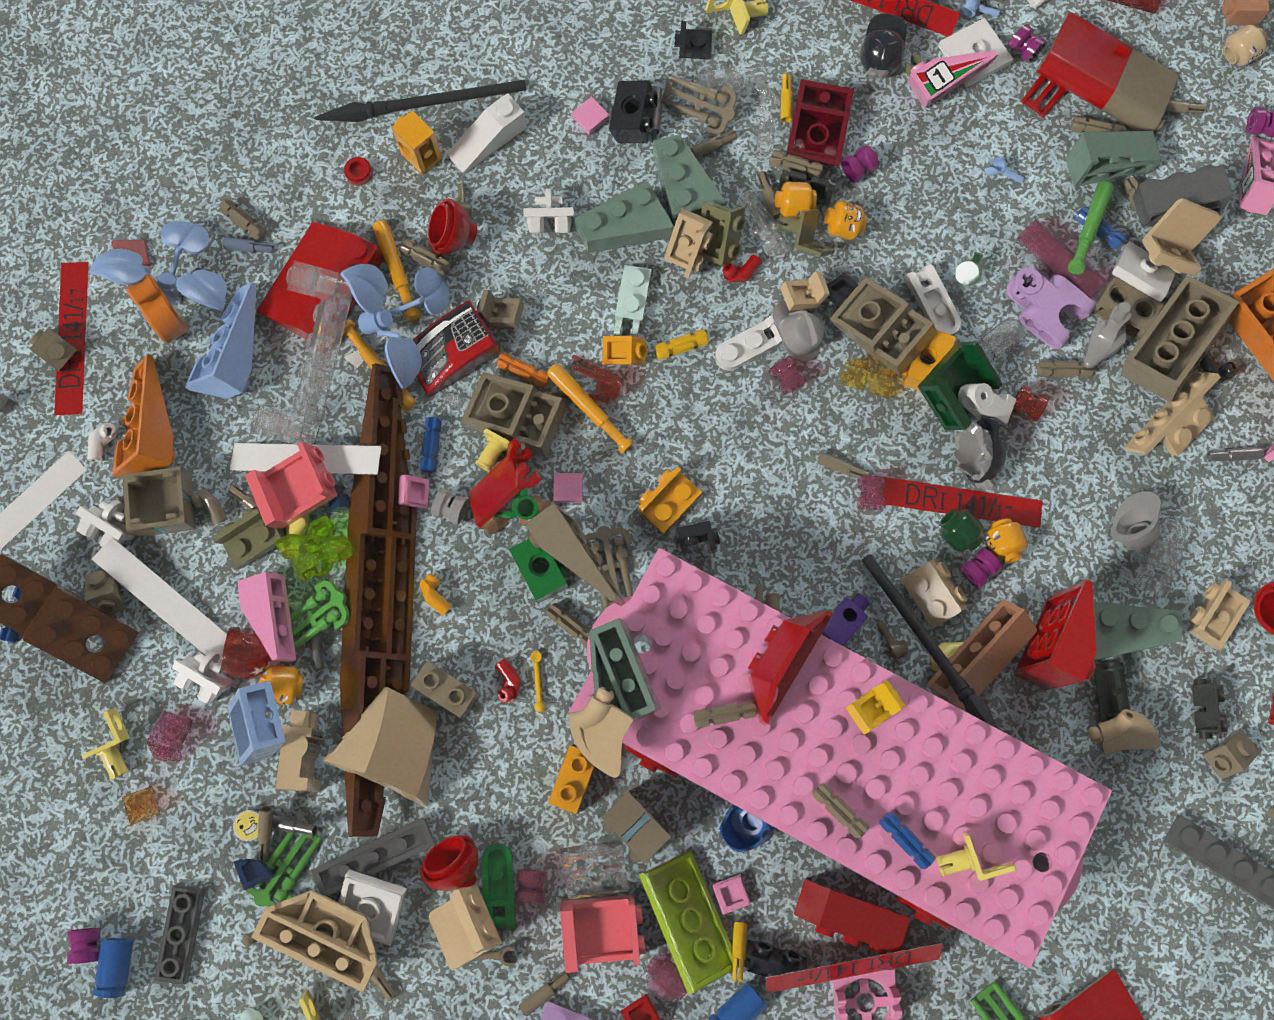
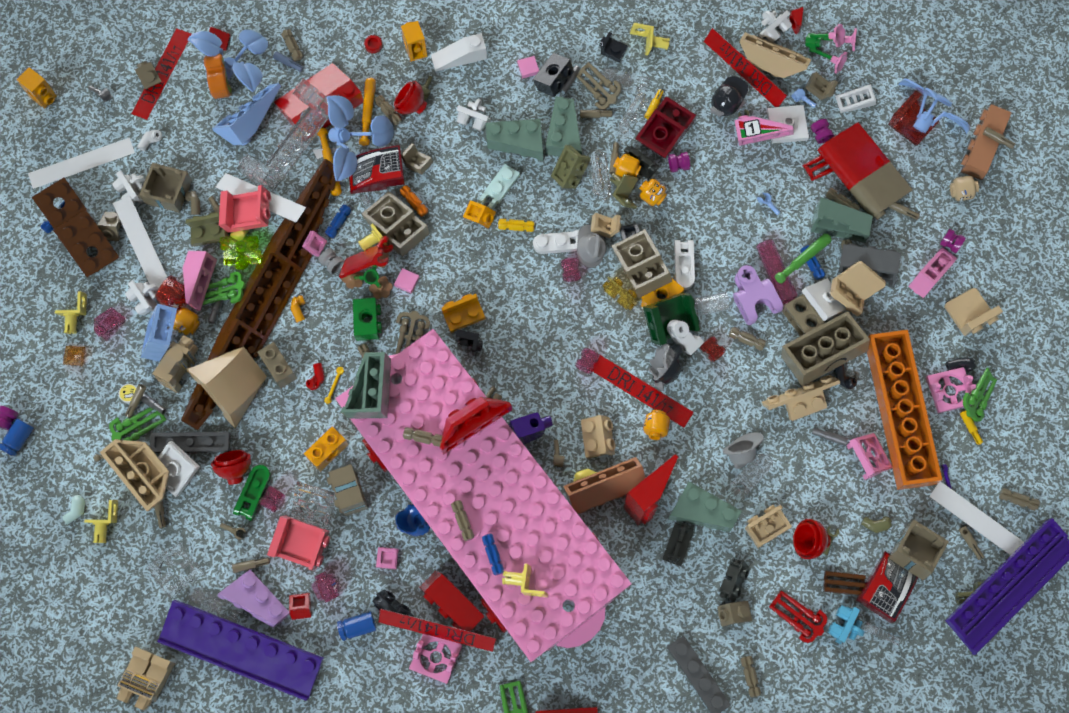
camera: 25 degrees right, 5 degrees down
(148, 431) = (179, 145): orange wedge -> none
(177, 954) = (54, 447): dark grey tile -> none
(252, 872) = (117, 419): dark blue tile -> none
(340, 502) = (269, 230): dark blue tile -> none
(358, 111) = (390, 9): black piece -> none
(464, 927) = (222, 503): tan bracket -> none
(566, 542) = (388, 310): dark tan wedge -> none
(587, 405) = (439, 231): light orange piece -> none
(600, 732) = (343, 411): tan arm -> none
(607, 384) = (459, 229): clear red plant -> none
(688, 240) = (548, 165): tan bracket -> none
(689, 921) = (353, 560): lime tile -> none
(739, 950) = (377, 587): yellow pin -> none
(741, 273) = (574, 198): red arm -> none
(796, 163) = (638, 146): dark tan axle -> none
(841, 465) = (578, 337): dark tan pin -> none
(875, 707) = (511, 470): yellow bracket -> none
(961, 530) = (631, 406): dark green head -> none
(970, 271) = (715, 254): piece -> none
(972, 703) = (580, 505): black piece -> none
(981, 568) = (632, 434): magenta wheel -> none
(1108, 336) = (780, 330): light grey animal -> none
(1125, 732) = (672, 569): tan arm -> none

